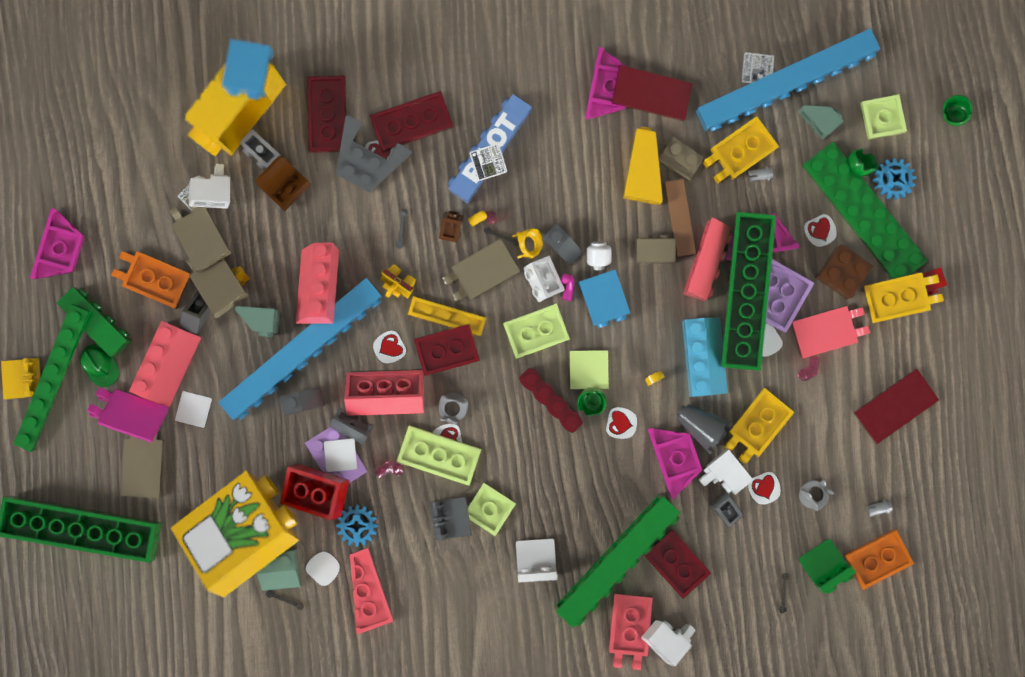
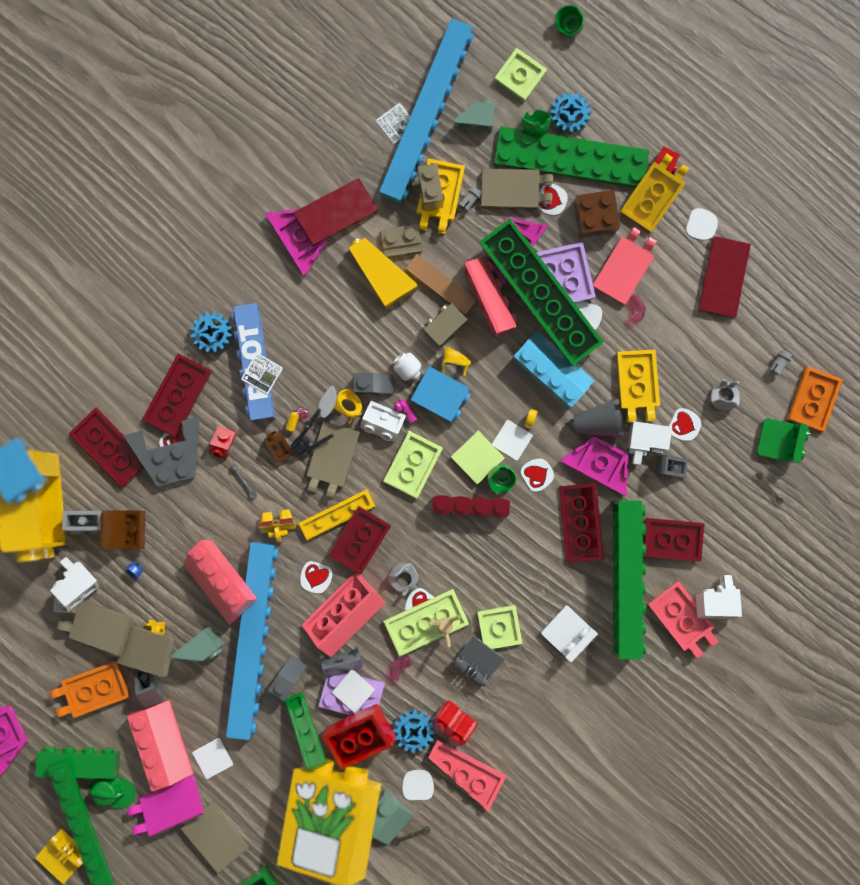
camera: 45 degrees left, 0 degrees up
(262, 220) = (134, 570): none -> blue hinge
(278, 452) = (305, 731): none -> green tile
(391, 547) = (454, 723): none -> brick
(412, 185) = (221, 442): none -> bracket
(450, 470) = (445, 626): none -> tan plant
(469, 240) = (302, 442): none -> black plant
(475, 105) = (209, 324): none -> dark azure gear
(516, 227) = (327, 402): none -> white sticker
(620, 488) = (581, 522): none -> dark red slope
(626, 380) = (512, 440): none -> white sticker
(640, 280) = (454, 357): none -> yellow piece
(738, 138) = (430, 187): none -> dark tan brick
(800, 197) = (514, 188): none -> dark tan tile
(916, 352) = (702, 224): none -> white sticker

